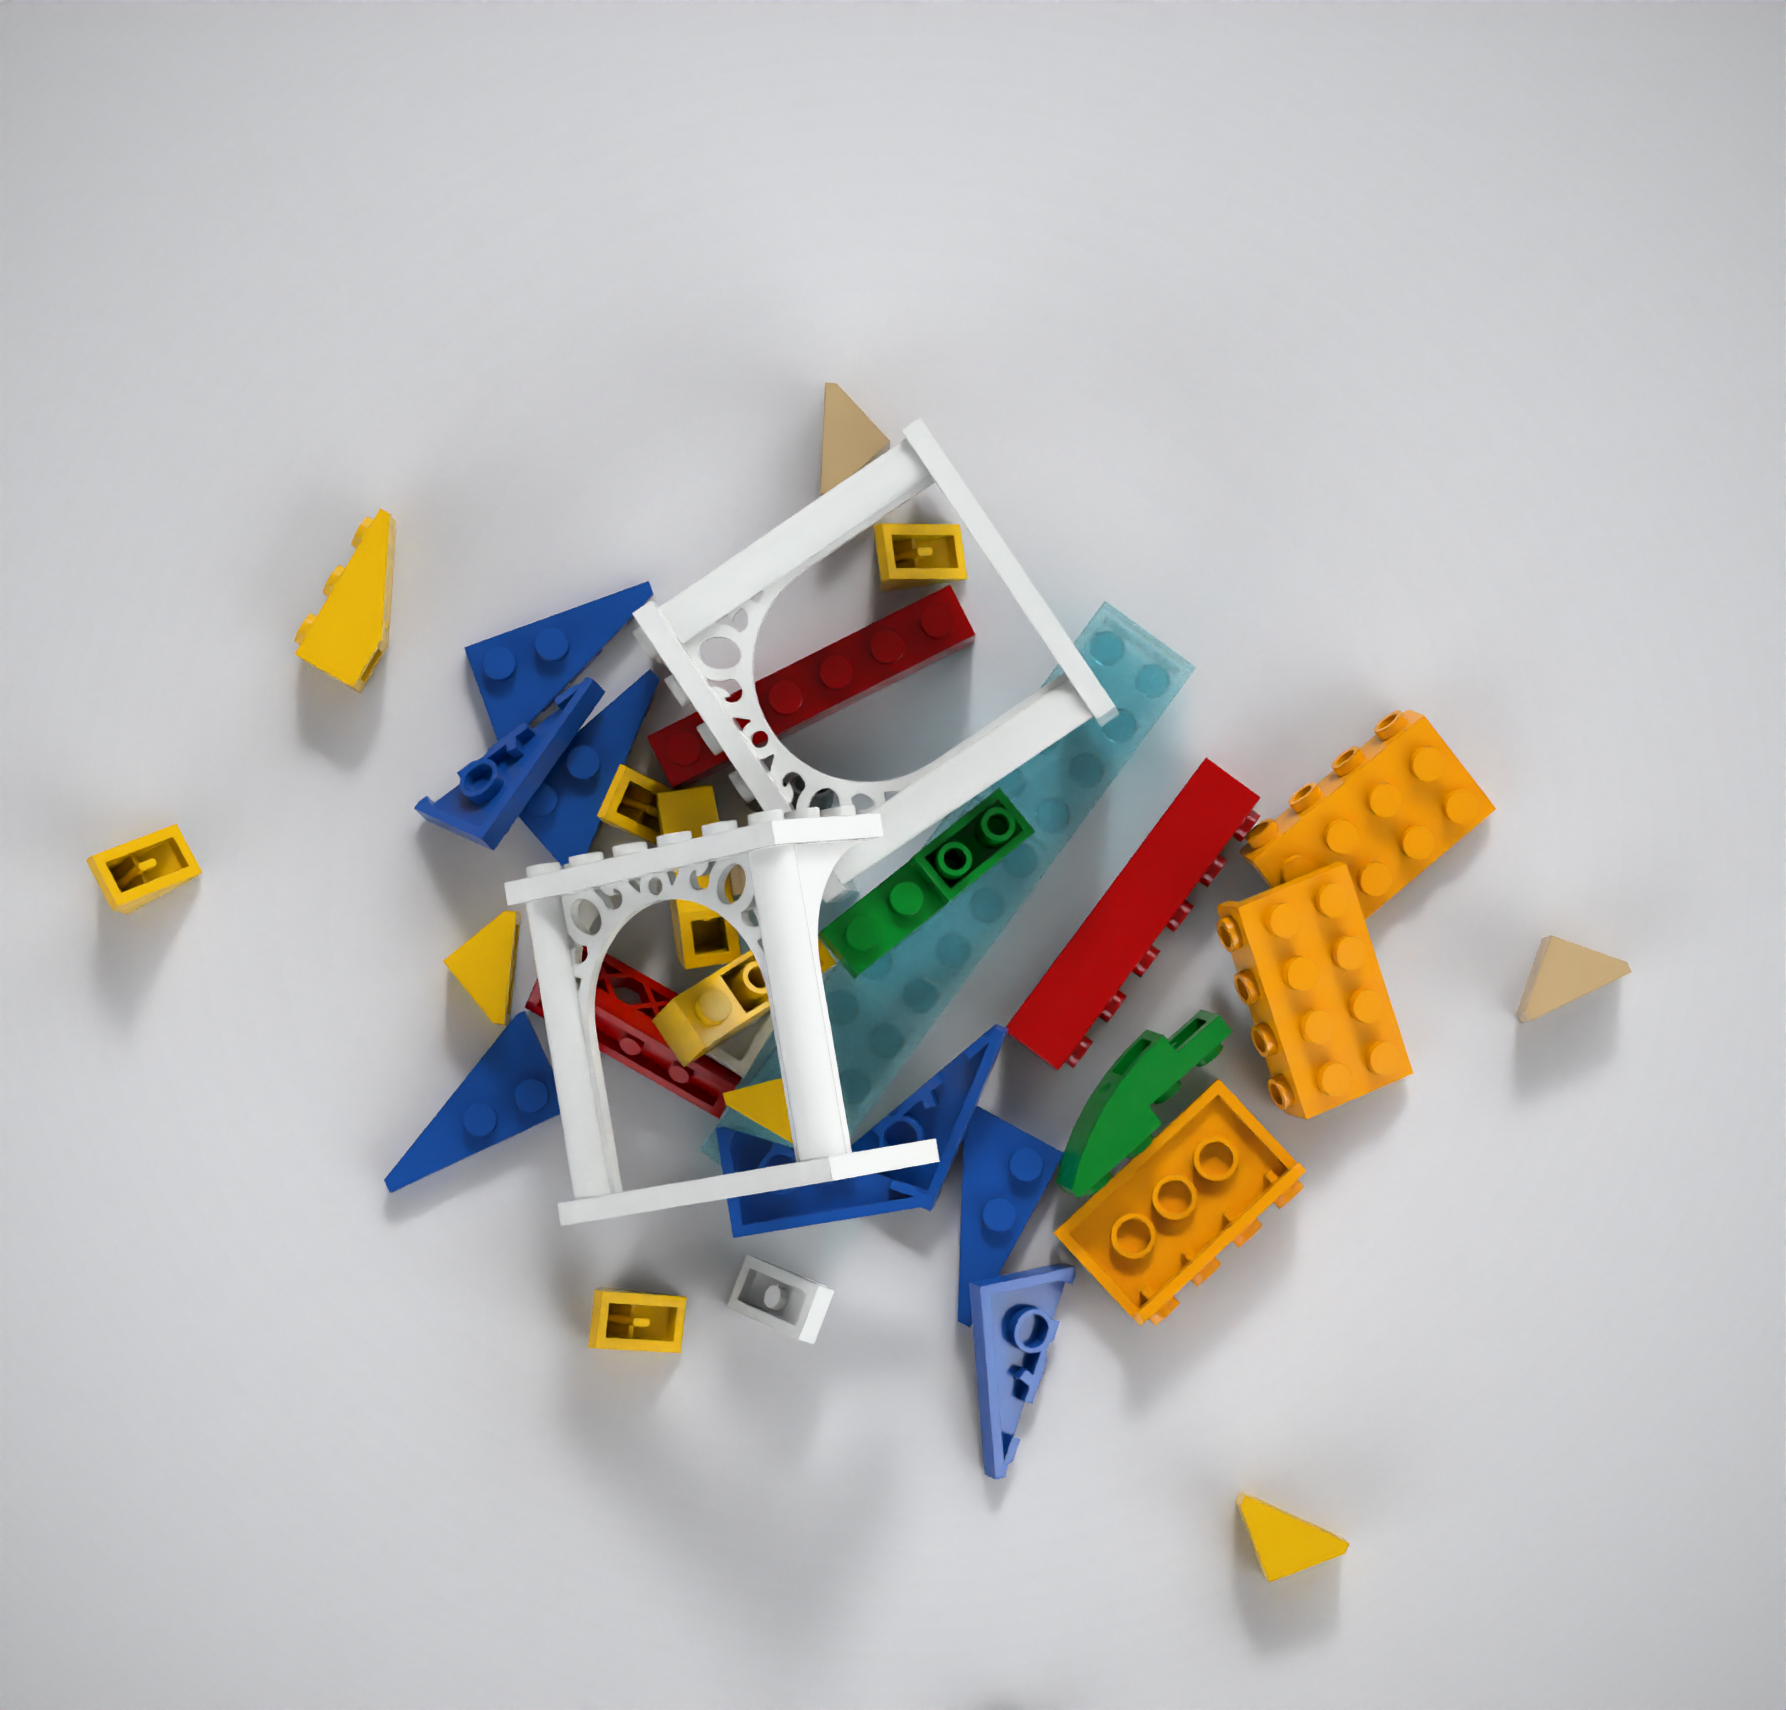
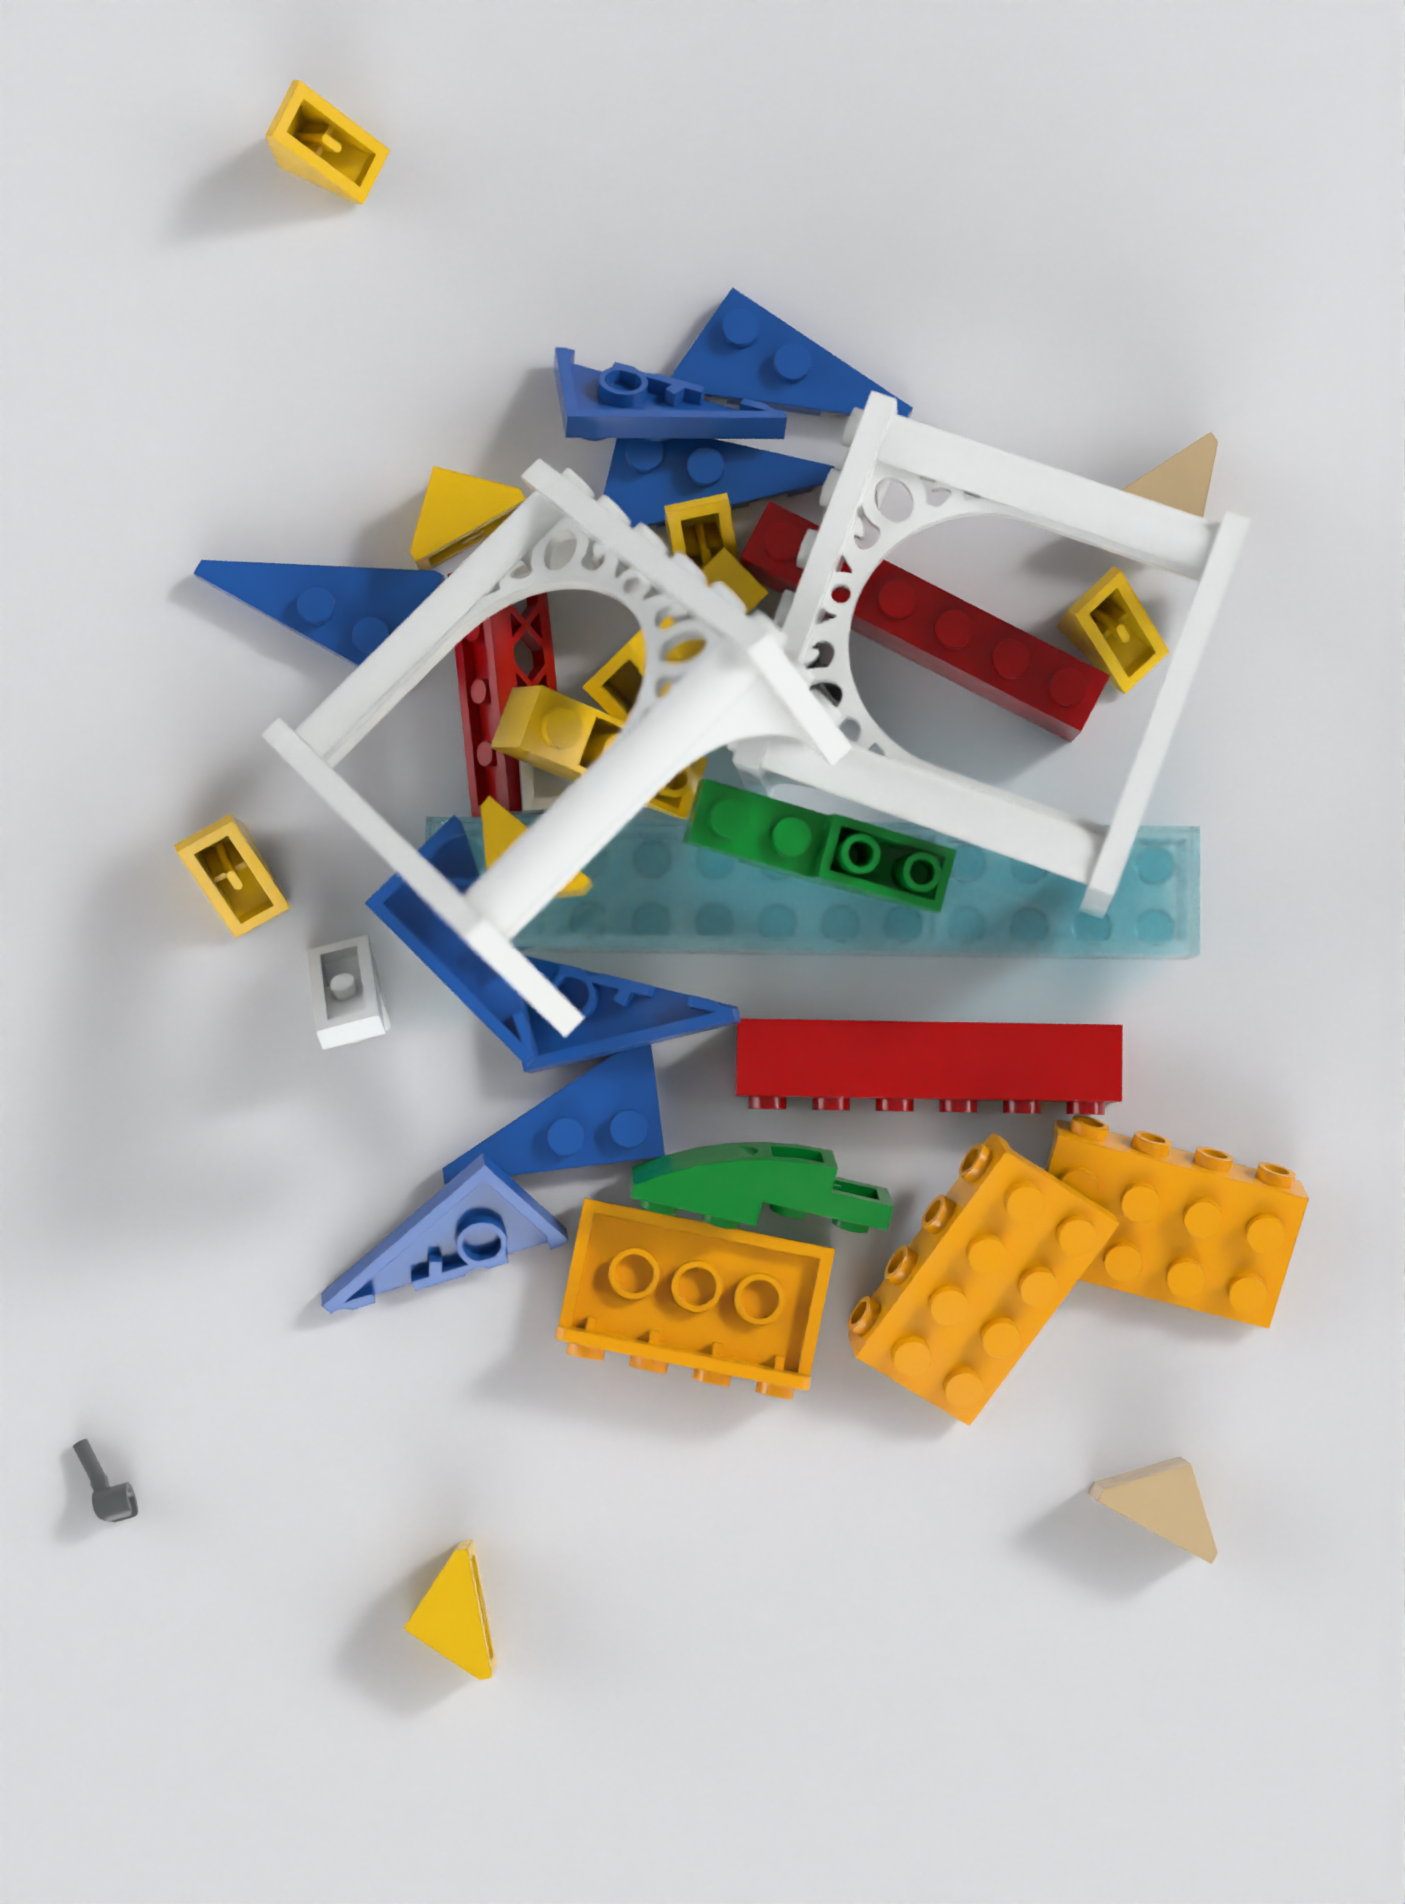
camera: 55 degrees right, 0 degrees up
(355, 619) = (685, 171): yellow slope -> none

